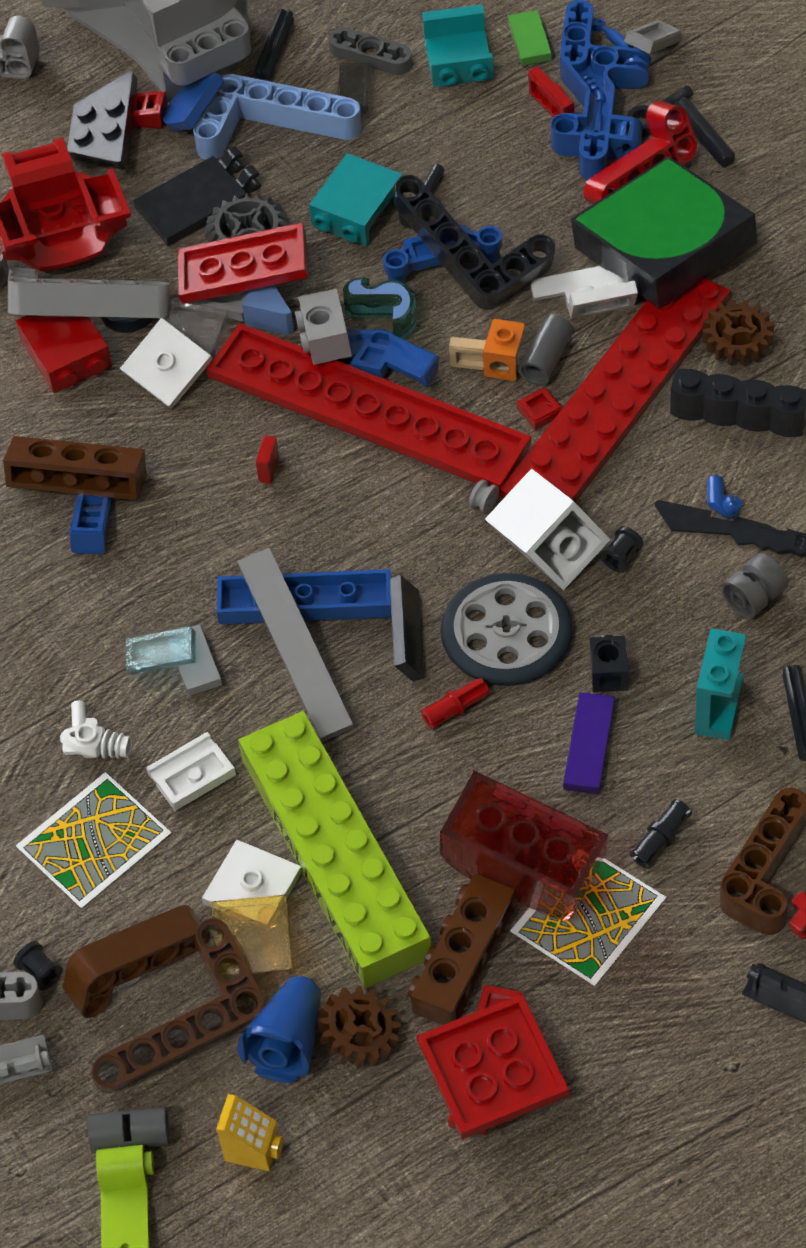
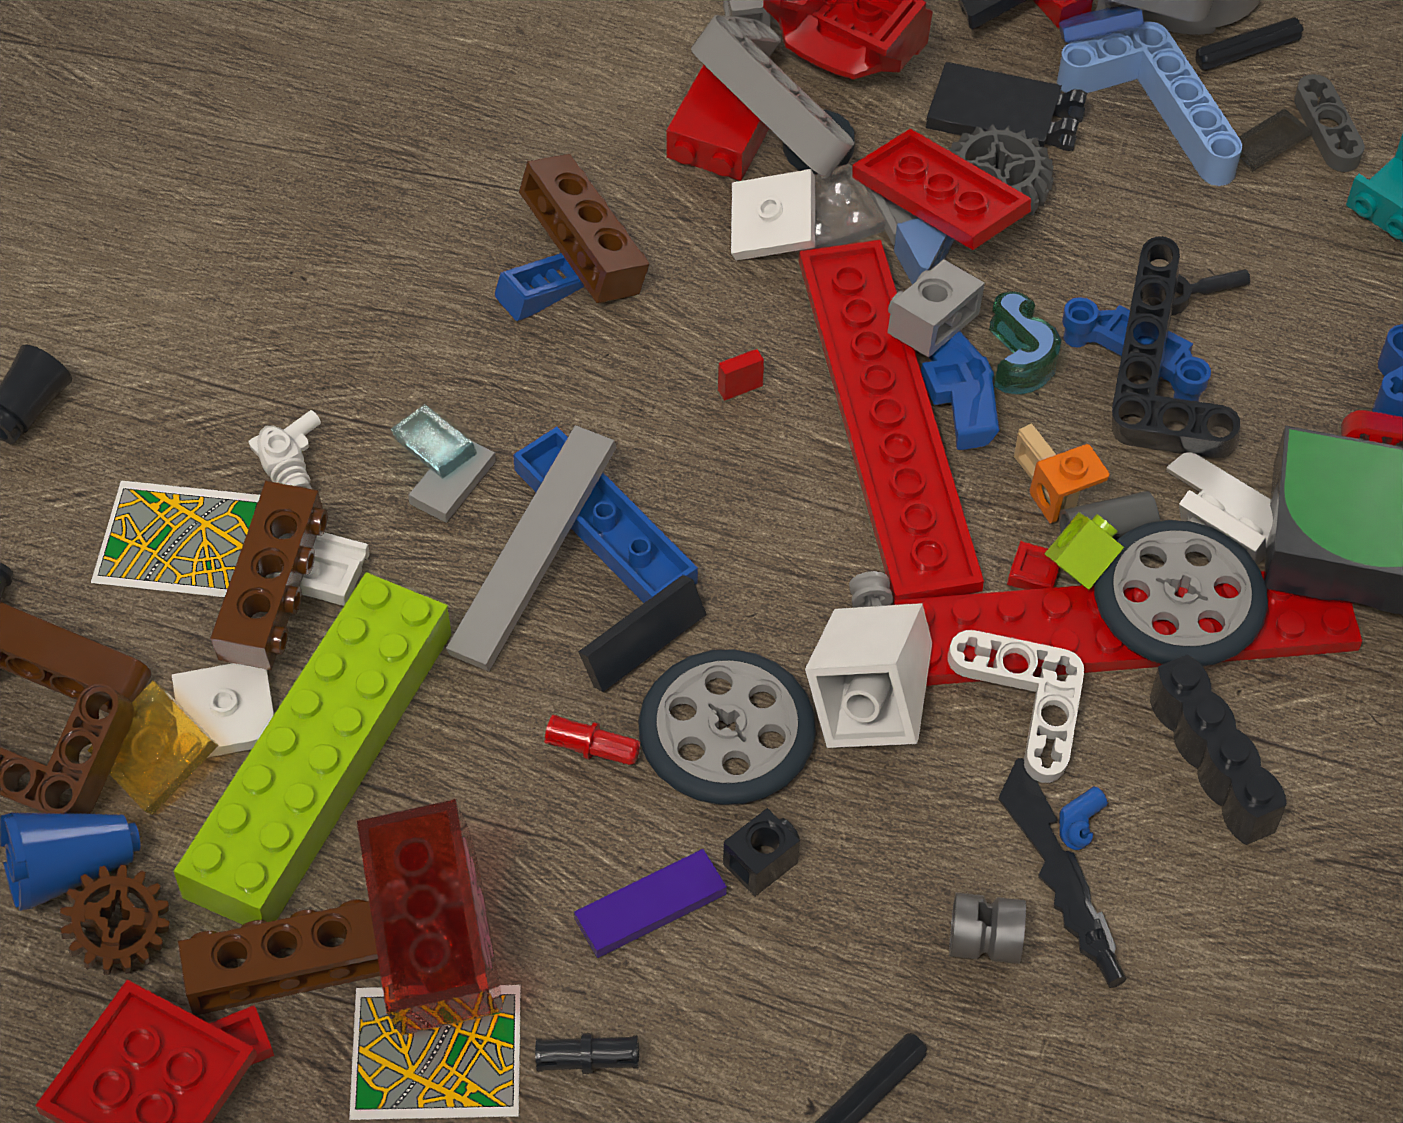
camera: 45 degrees right, 0 degrees up
(216, 837) = (279, 512): none -> reddish brown brick
(353, 199) = (1117, 223): teal panel -> none
(560, 370) = (1085, 548): none -> lime brick
(621, 549) = (921, 764): black bush -> none
(625, 382) = (1171, 541): none -> light grey wedge
(630, 454) = (1047, 688): none -> white beam
(719, 684) = (811, 977): teal panel -> none
(738, 332) = (1311, 685): reddish brown gear -> none

